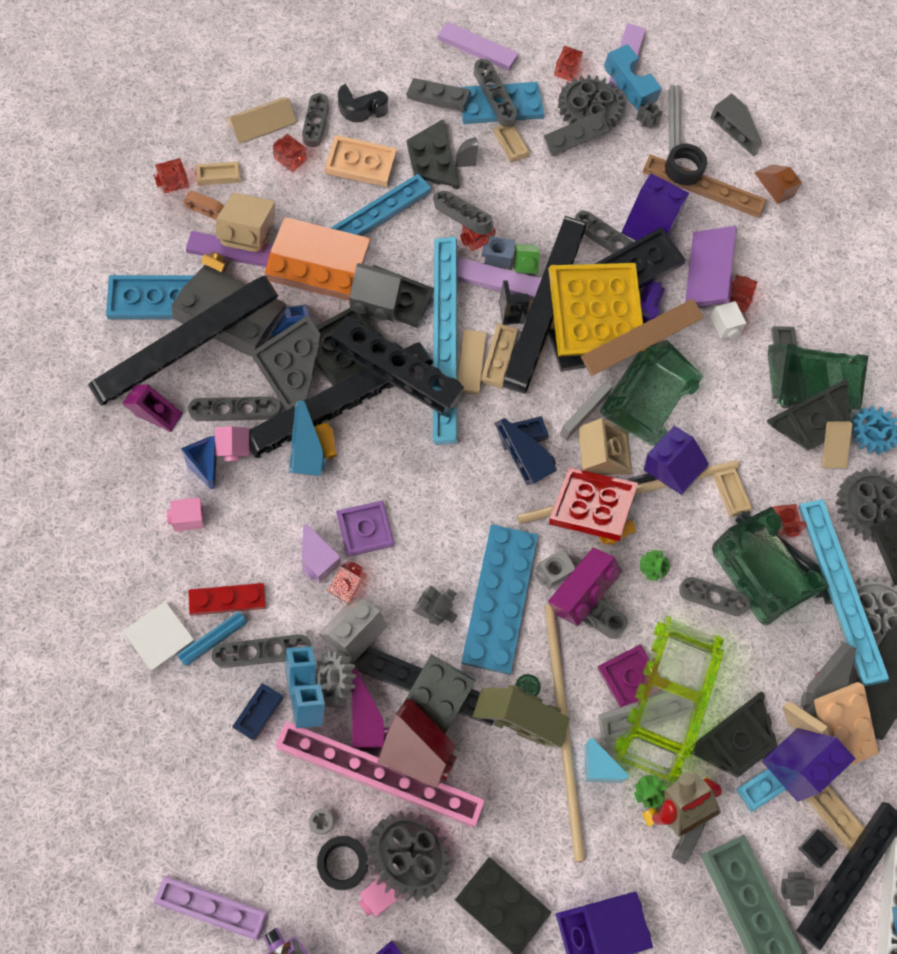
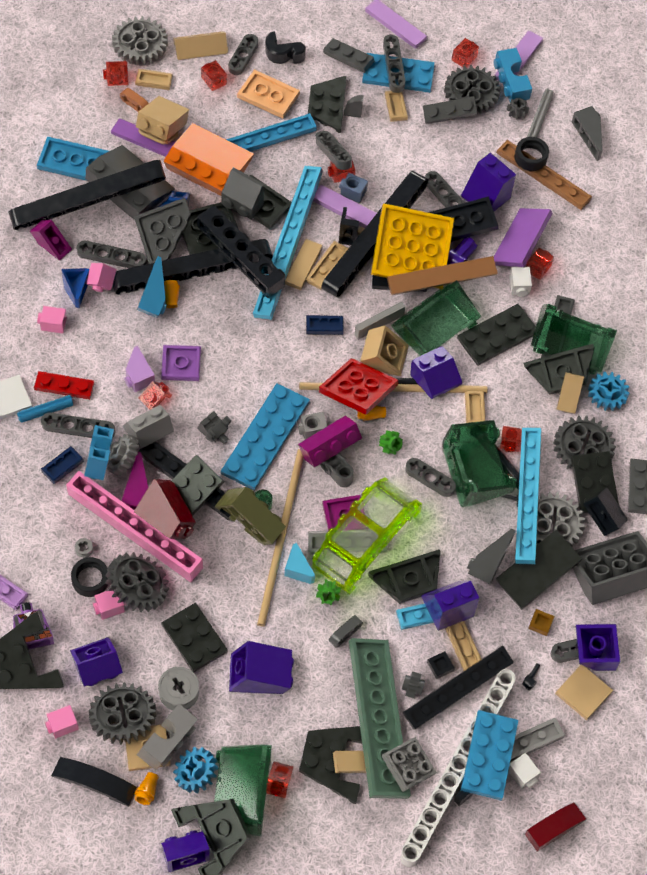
camera: 20 degrees right, 5 degrees down
(187, 129) = (139, 40): none -> light grey gear
(215, 260) = (130, 144): pearl gold plate -> none
(526, 258) = (372, 197): bright green brick -> none
(528, 455) = (321, 340): dark blue slope -> none
(686, 804) = (349, 601): torso -> none
(724, 392) = (497, 334): none -> pearl dark grey plate
(779, 182) = (607, 186): dark orange slope -> none
(801, 719) = (460, 572): tan tile -> none
(849, 720) = (494, 586): light nougat plate -> none

